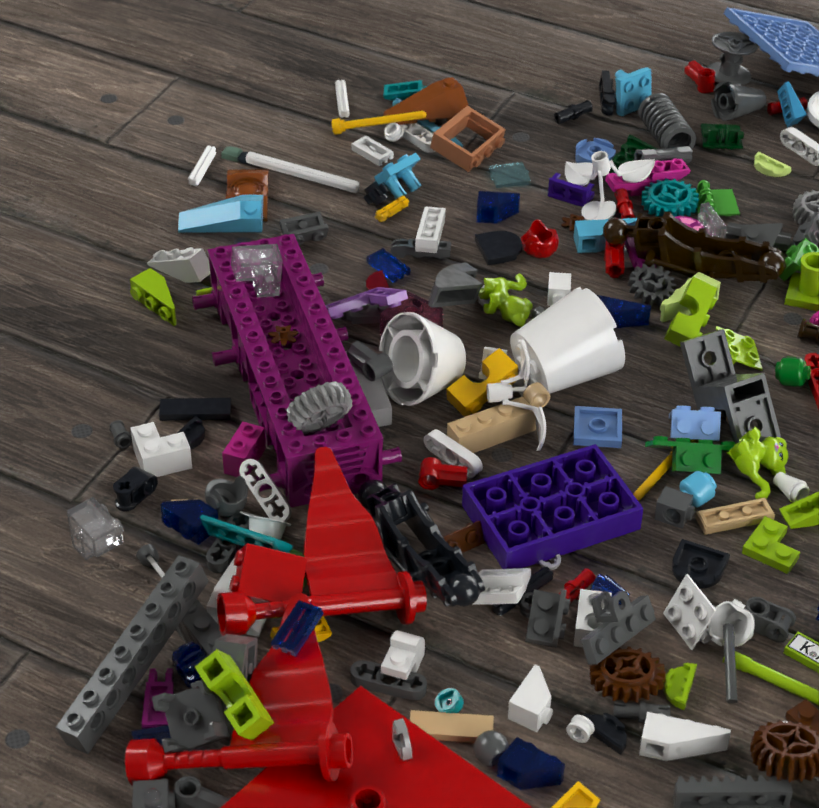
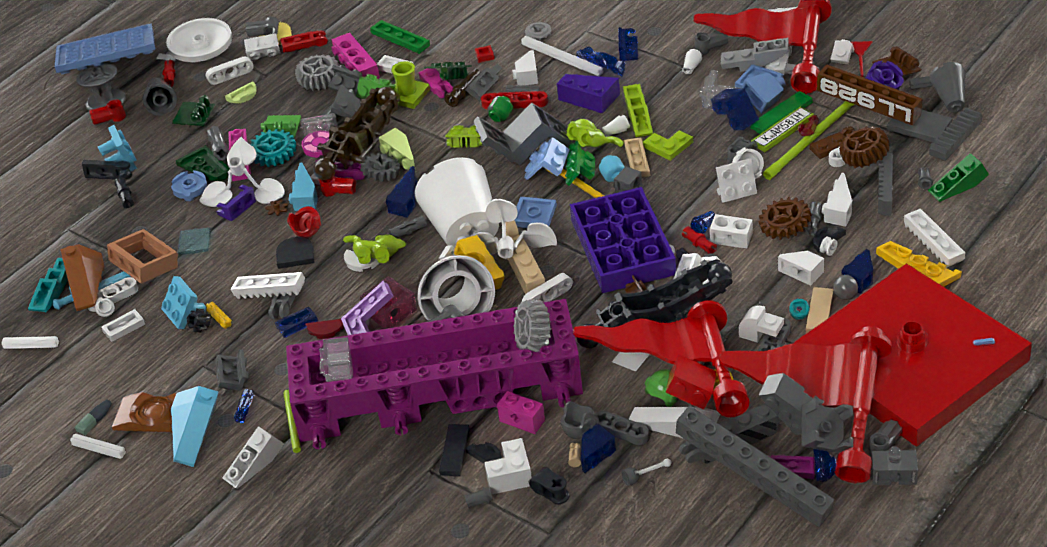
camera: 75 degrees left, 0 degrees up
(93, 529) = (609, 496): clear brick -> none
(152, 291) = (295, 473): lime slope -> none
(185, 660) = (762, 437): clear blue gear -> none
(241, 535) = (635, 401): teal slope -> none
(243, 705) = (836, 383): lime arch -> none
(260, 471) = (584, 389): white beam -> none
(266, 526) = (615, 401): white piece -> none
(283, 335) = (408, 363): reddish brown plant -> none
(301, 628) = (754, 360): clear blue tile -> none
(302, 172) = (133, 379): white axle -> none
(341, 125) = (79, 342): yellow piece -> none
(401, 739) = (851, 316): light grey tile -> none
(435, 473) = (572, 295): red piece -> none
(455, 286) = (357, 271): dark grey slope -> none
(496, 206) = (243, 249): clear blue slope -> none
(546, 618) = (730, 249): dark grey bracket -> none
(558, 286) = (368, 219): white brick -> none
(618, 623) = (743, 210): dark grey plate -> none
(624, 205) = (269, 173): red pin -> none
(666, 122) = (190, 141): dark grey piece -> none
(679, 683) = (785, 193): lime plate -> none
(698, 299) = (418, 137): lime arch -> none
(700, 562) = (680, 180): black tile -> none
(730, 663) = (778, 170): dark grey bar -> none
(790, 104) = (189, 66): dark azure slope -> none

